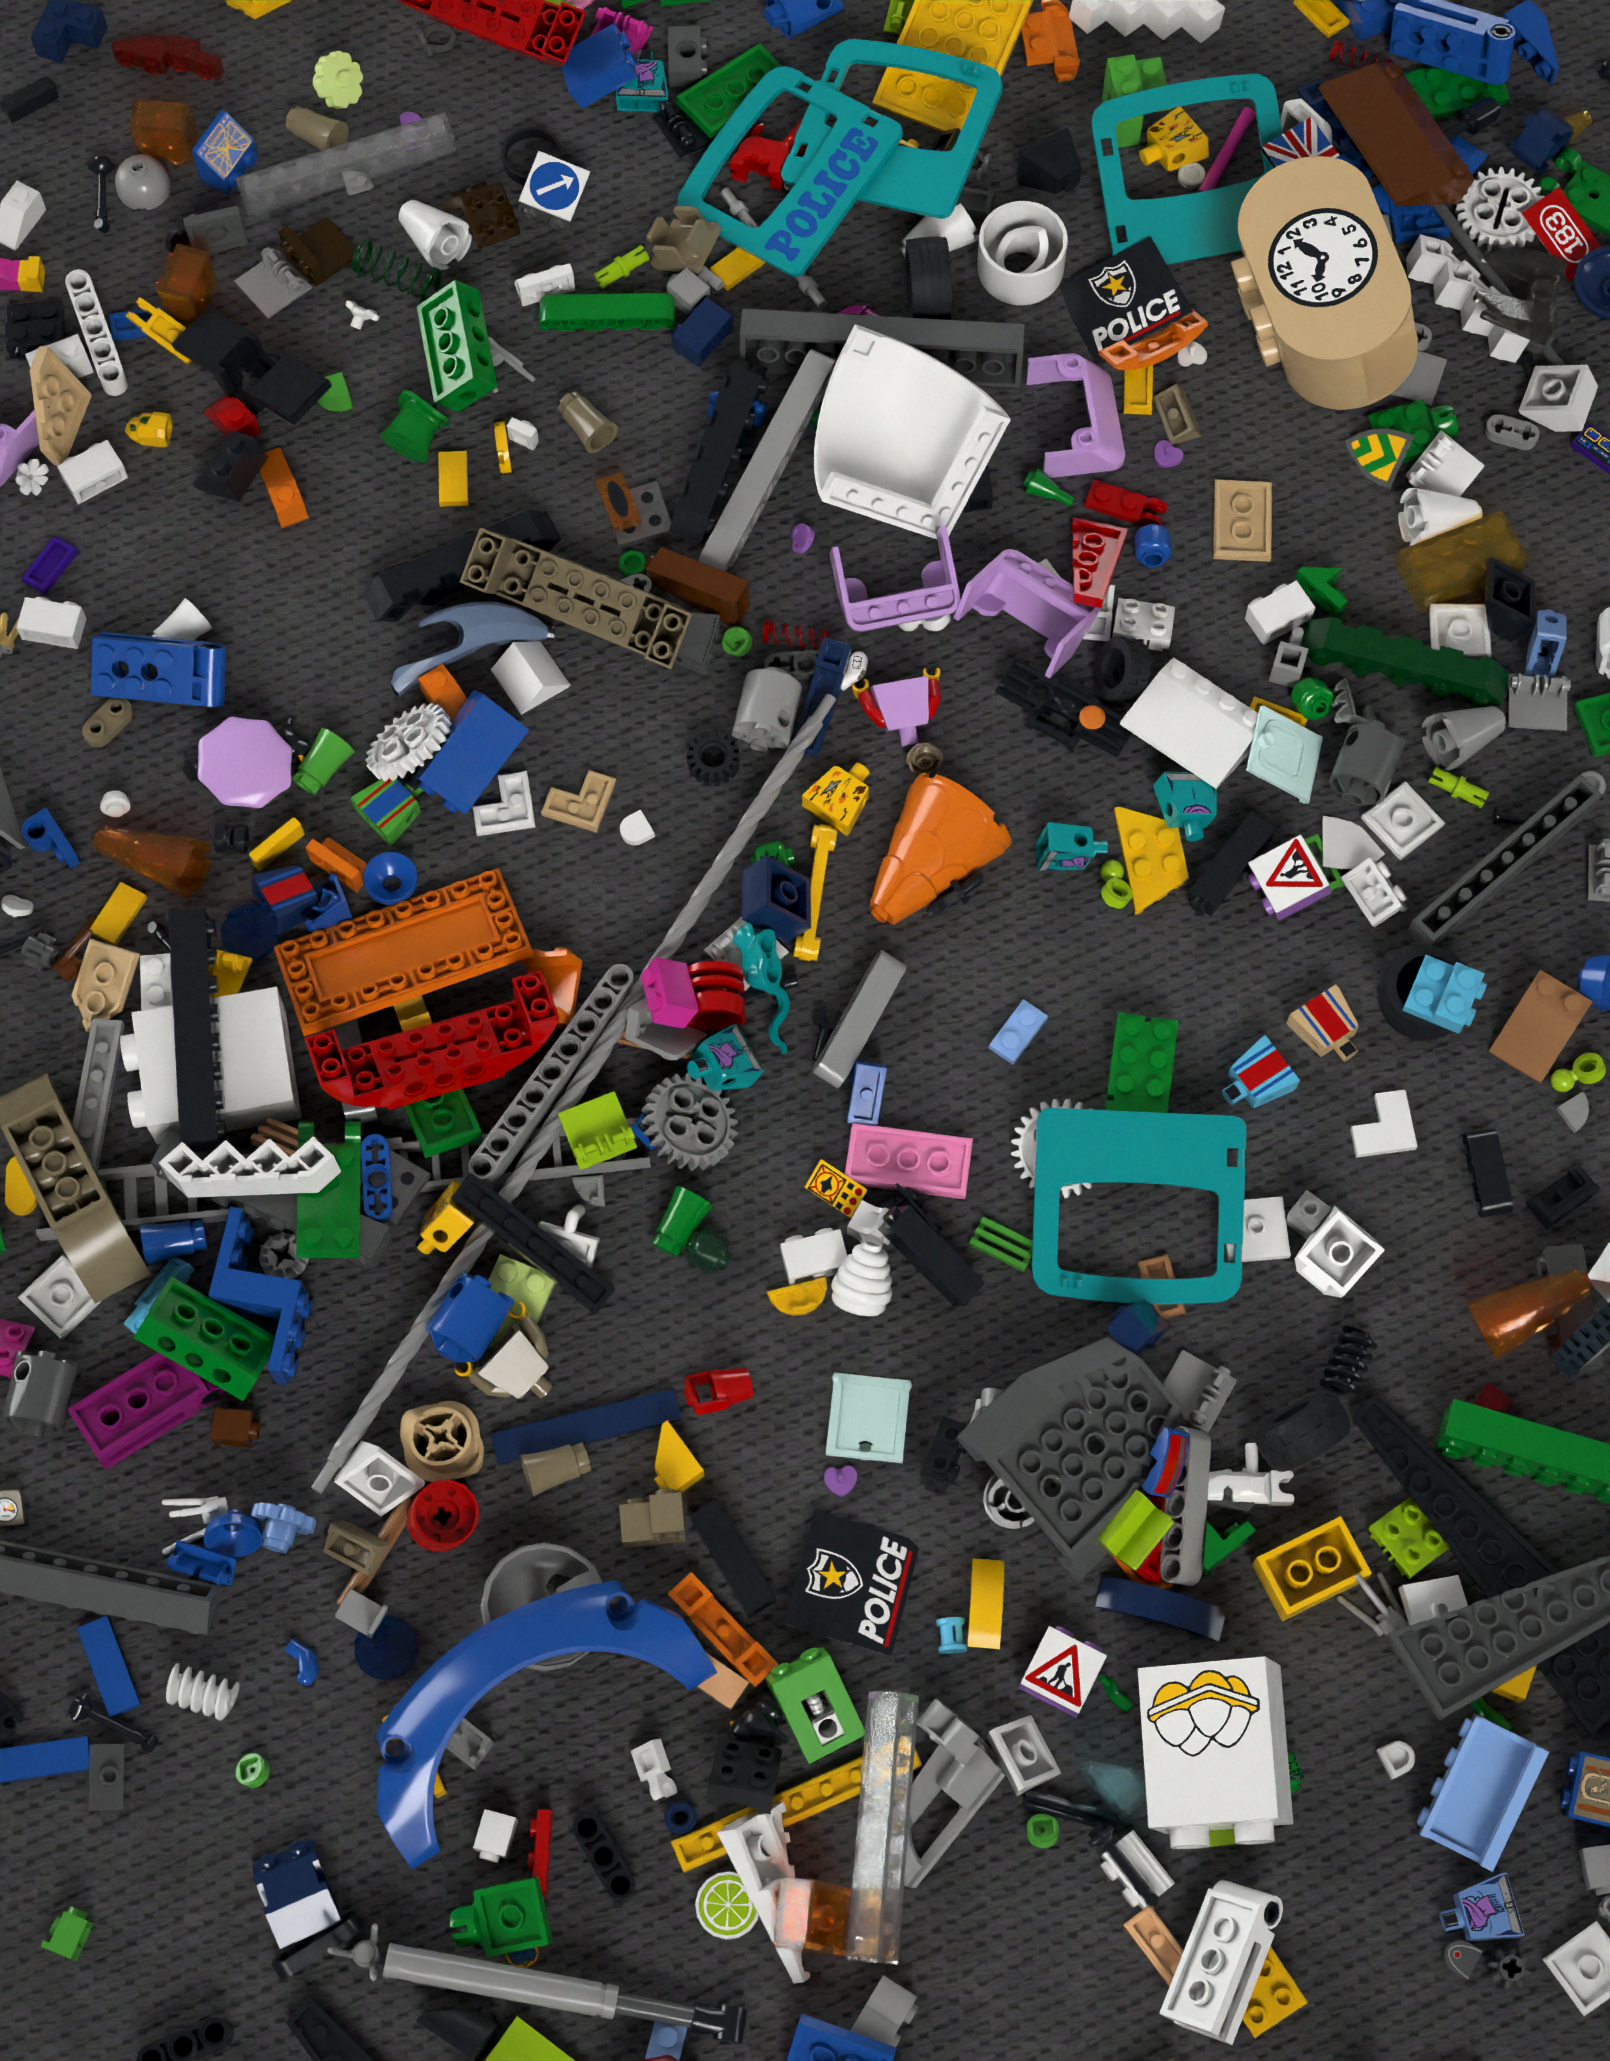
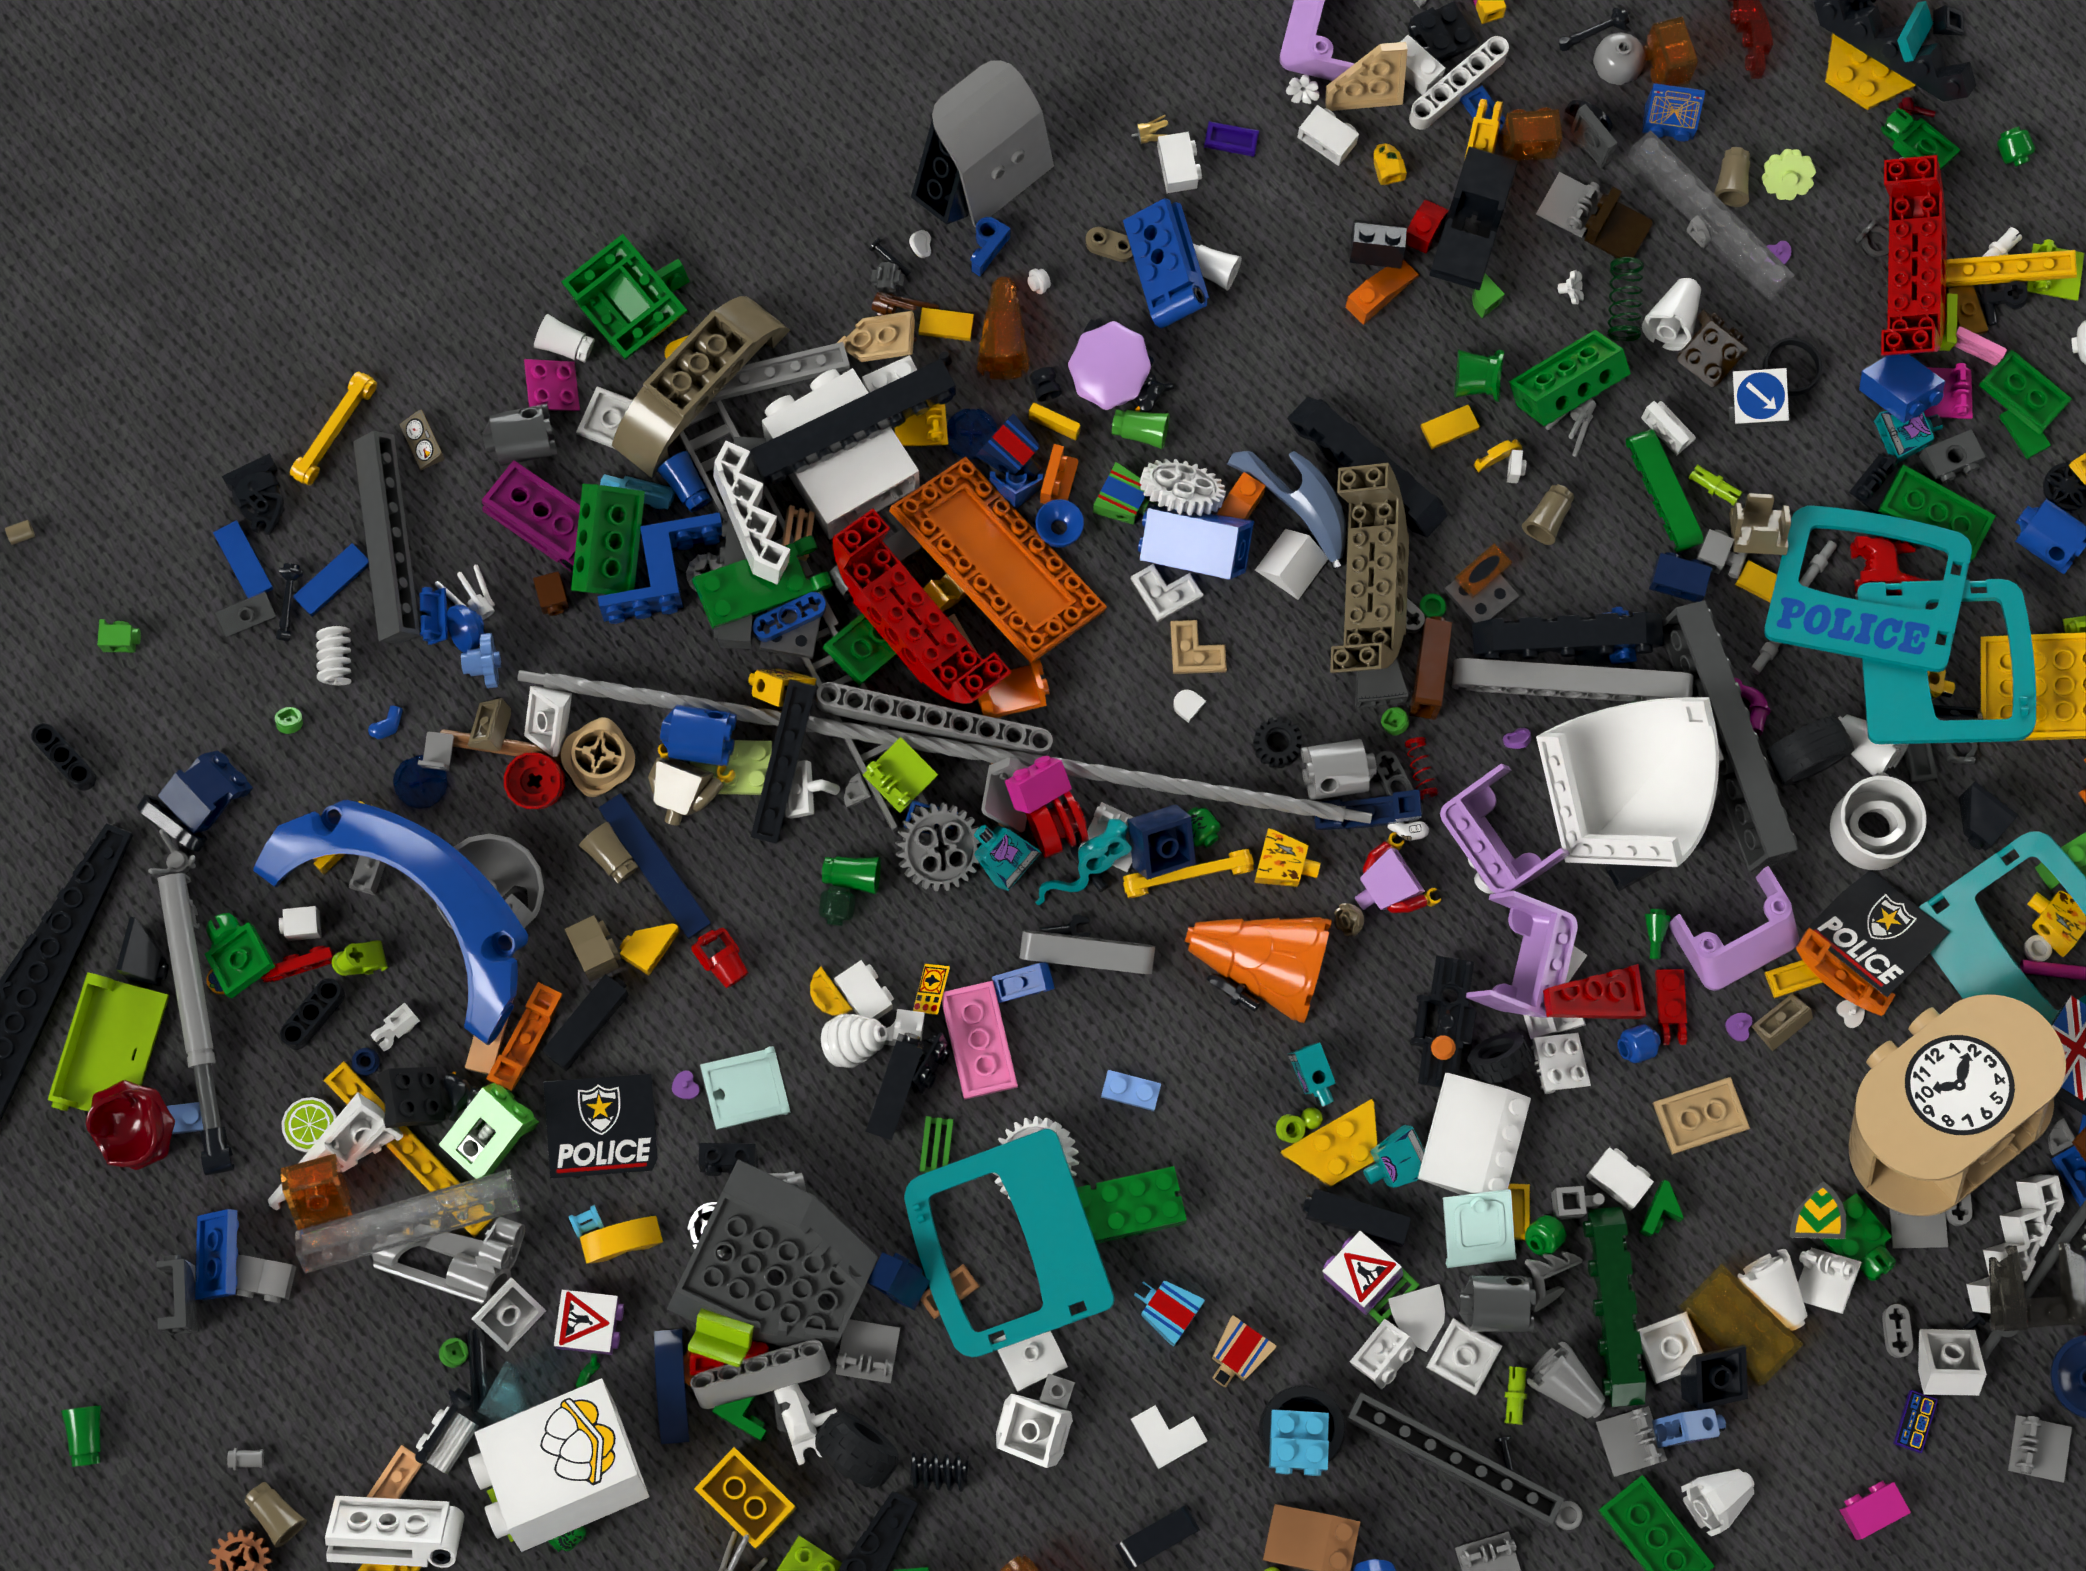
camera: 65 degrees right, 5 degrees up
(564, 1781) = (360, 959): none -> lime piece
(1170, 1454) = (788, 1344): slope -> none

